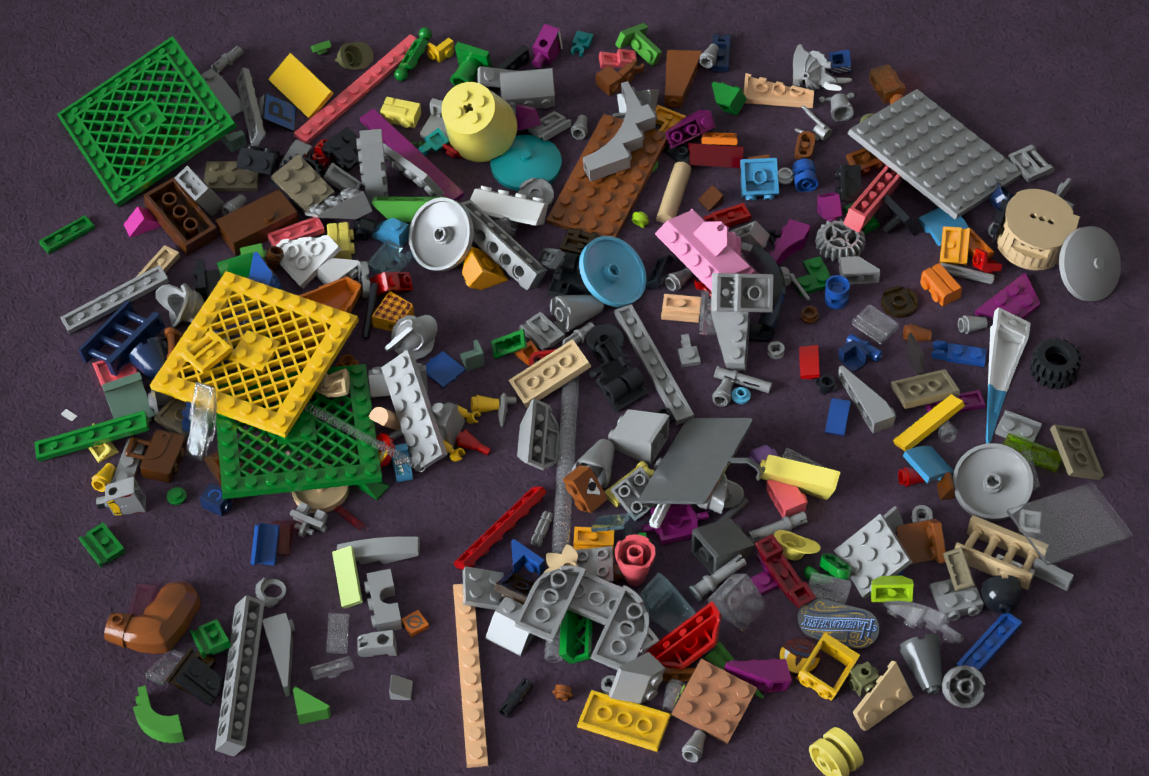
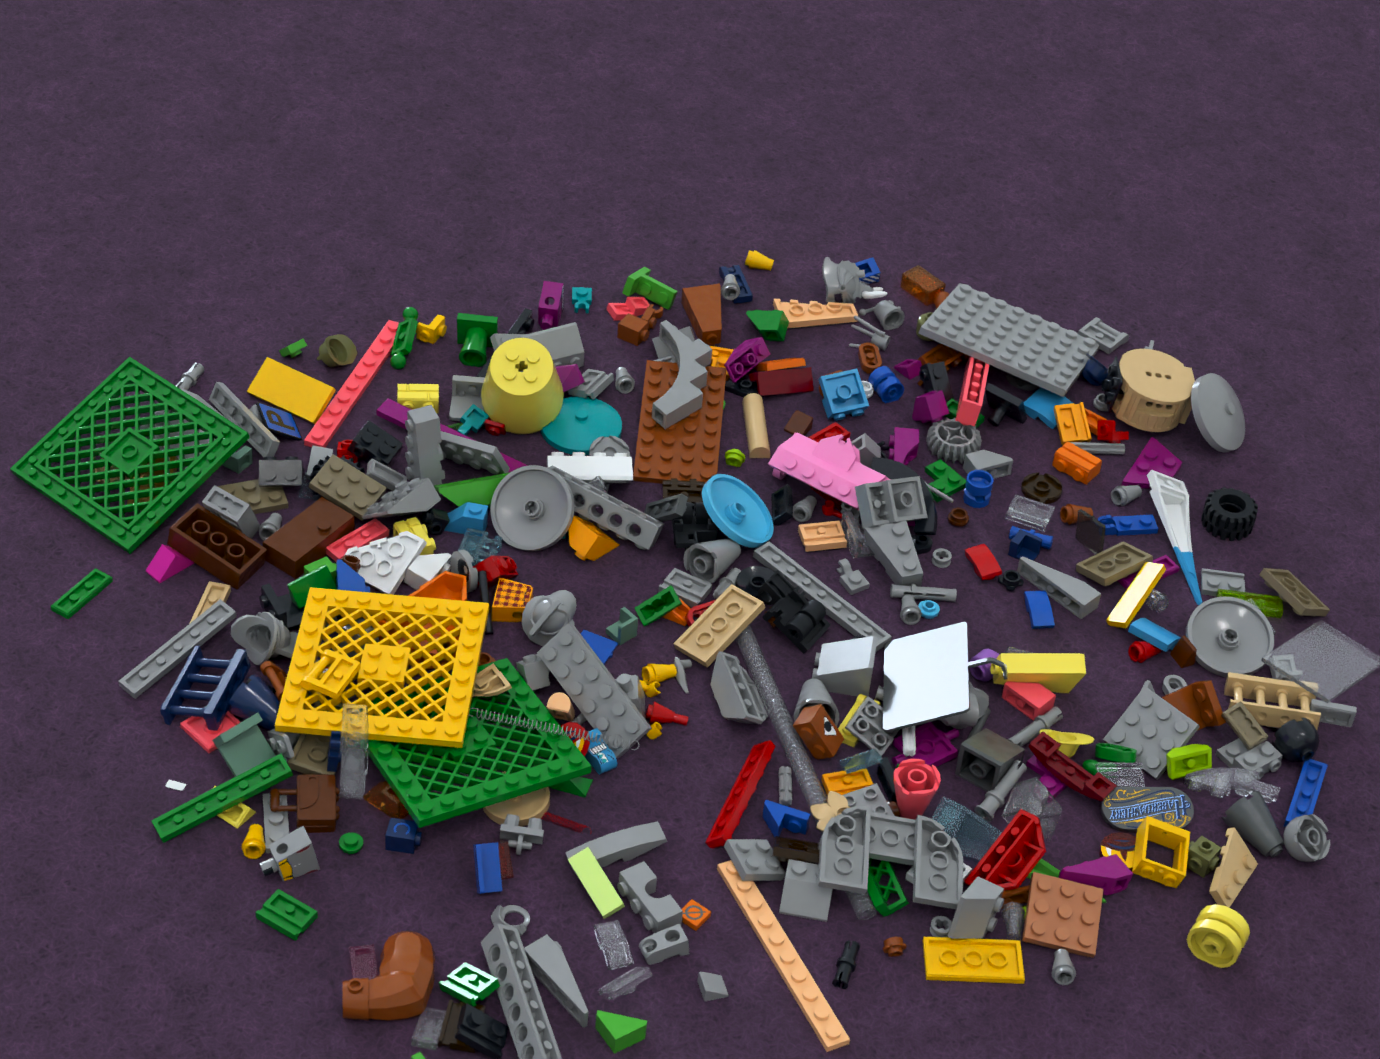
camera: 25 degrees left, 10 degrees down
(750, 33) = (758, 261): none -> yellow cone
(836, 160) = (909, 368): none -> magenta slope

